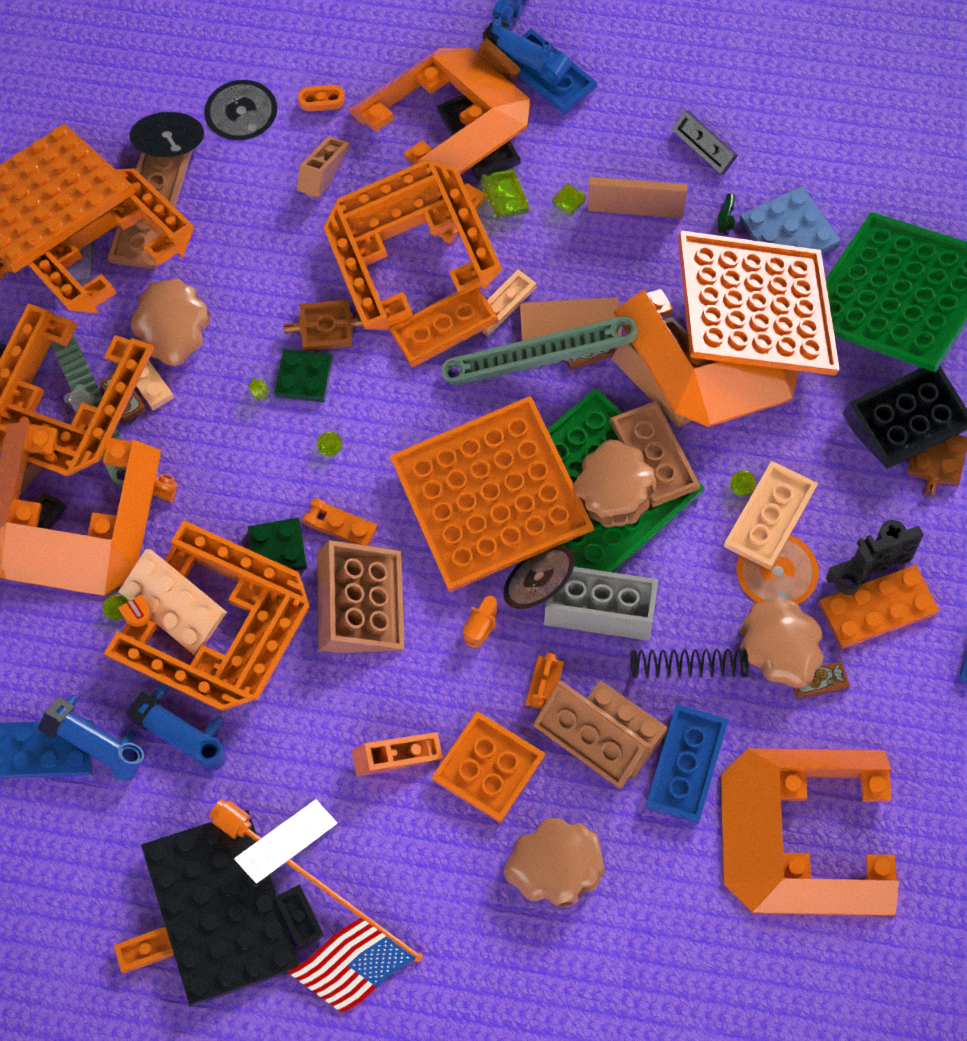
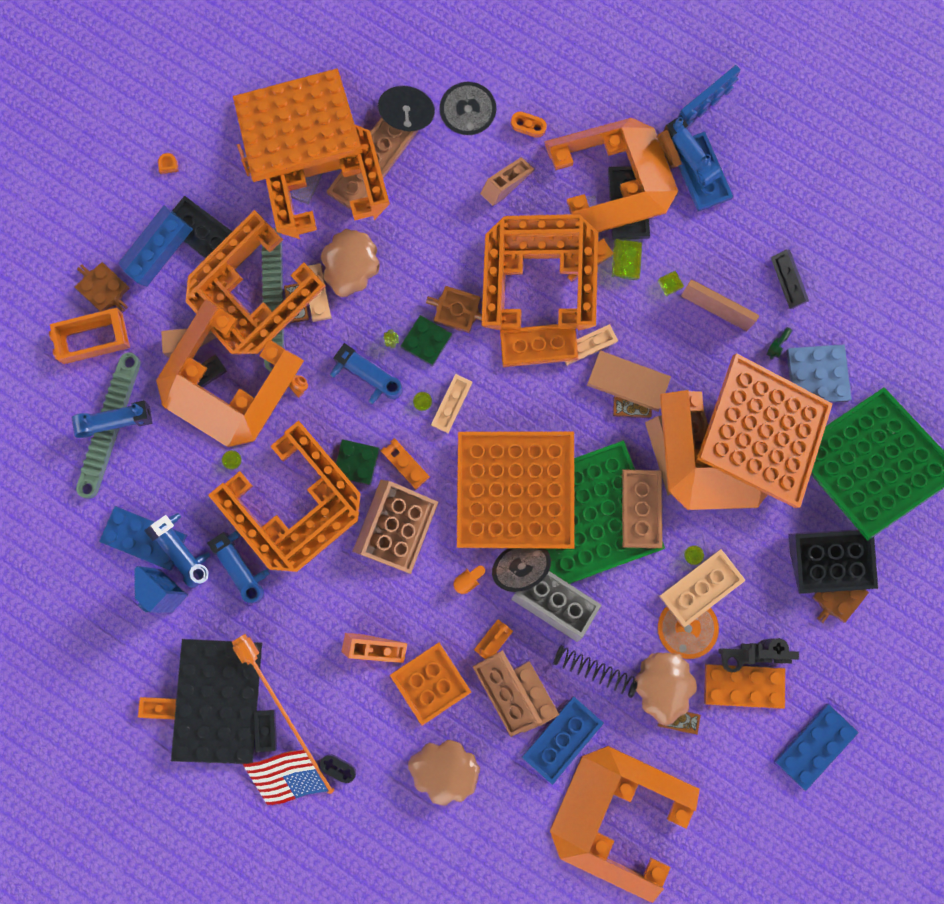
camera: 20 degrees right, 15 degrees up
(80, 391) = (258, 293): clear plate -> none
(89, 787) = (156, 591): none -> blue slope
(136, 612) = (241, 473): orange tile -> none
(173, 601) = (269, 474): light nougat plate -> none
(218, 431) = (350, 360): none -> blue piece
(285, 841) = (275, 678): white sticker -> none
(367, 432) = (451, 403): none -> light nougat plate
(416, 931) = (341, 764): none -> black beam
(540, 351) = (596, 399): sand green gear -> none
(615, 484) = (603, 523): nougat piece -> none

